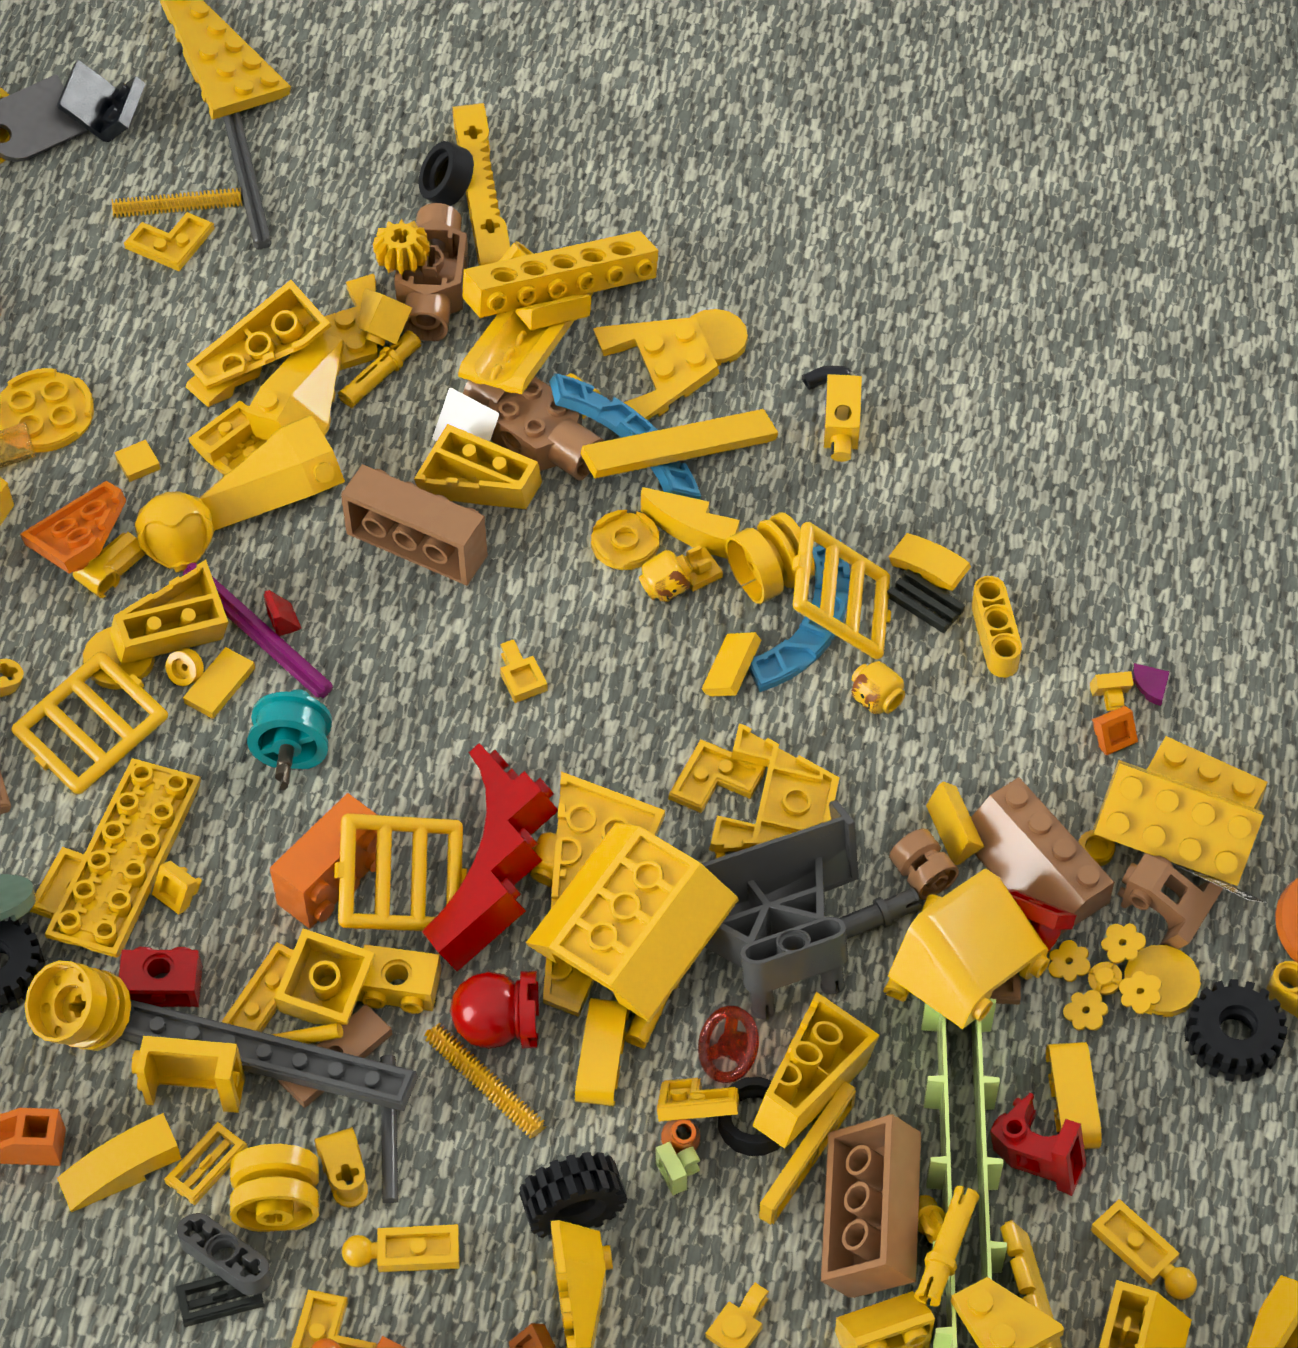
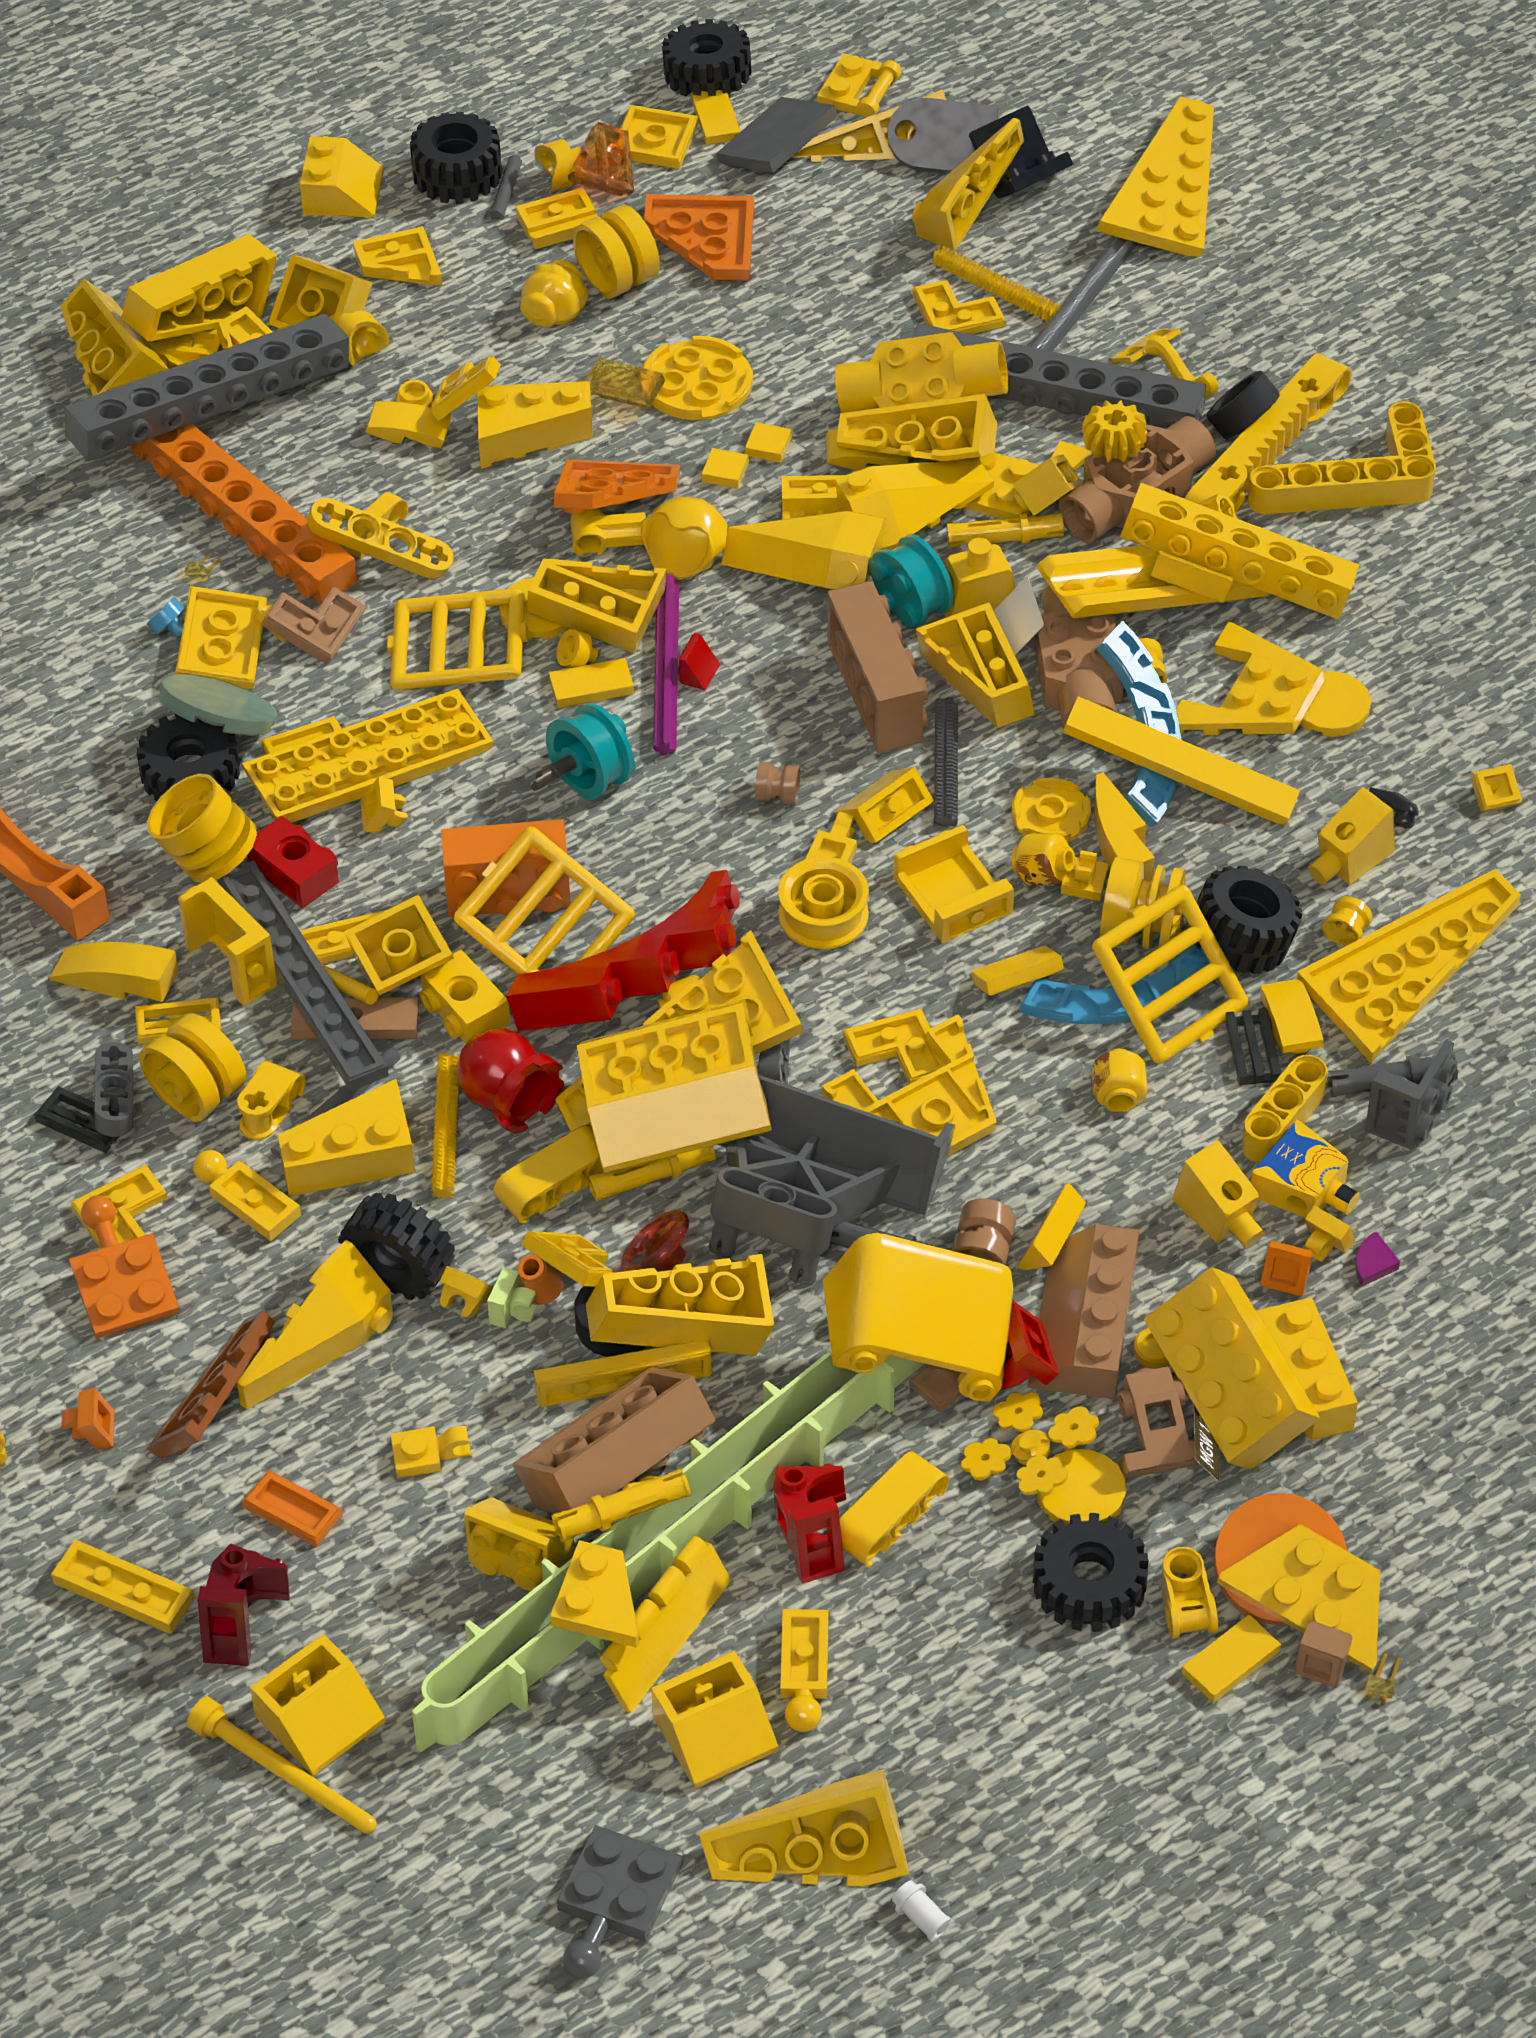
camera: 45 degrees right, 5 degrees down
(92, 159) = (960, 196): none -> yellow wedge
(146, 421) = (768, 442): none -> yellow tile
(218, 299) = (921, 372): none -> yellow brick
(292, 244) = (1078, 383): none -> dark grey brick
(372, 440) = (913, 579): none -> teal wheel
(396, 183) = (1158, 345): none -> yellow piece
(412, 410) = (979, 576): none -> yellow torso
(433, 657) = (774, 783): none -> medium nougat wheel
(443, 1148) = (349, 1144): none -> yellow wedge
(516, 614) = (888, 803): none -> yellow panel
(527, 561) = (946, 762): none -> dark grey axle
(566, 735) = (823, 903): none -> yellow wheel
(589, 156) = (1353, 483): none -> yellow beam
(624, 640) = (951, 885): none -> yellow panel
(641, 1181) = (463, 1285): none -> yellow tile
(843, 510) = (1250, 917): none -> black tyre
(875, 320) = (1496, 788): none -> yellow tile
(891, 473) = (1347, 920): none -> yellow wheel
(952, 479) = (1395, 971): none -> yellow wing
(1031, 716) = (1218, 1196): none -> yellow torso
(1035, 544) = (1360, 1078): none -> dark grey pin
(1056, 660) = (1304, 1173): none -> torso
(1072, 565) = (1405, 1110): none -> dark grey bracket

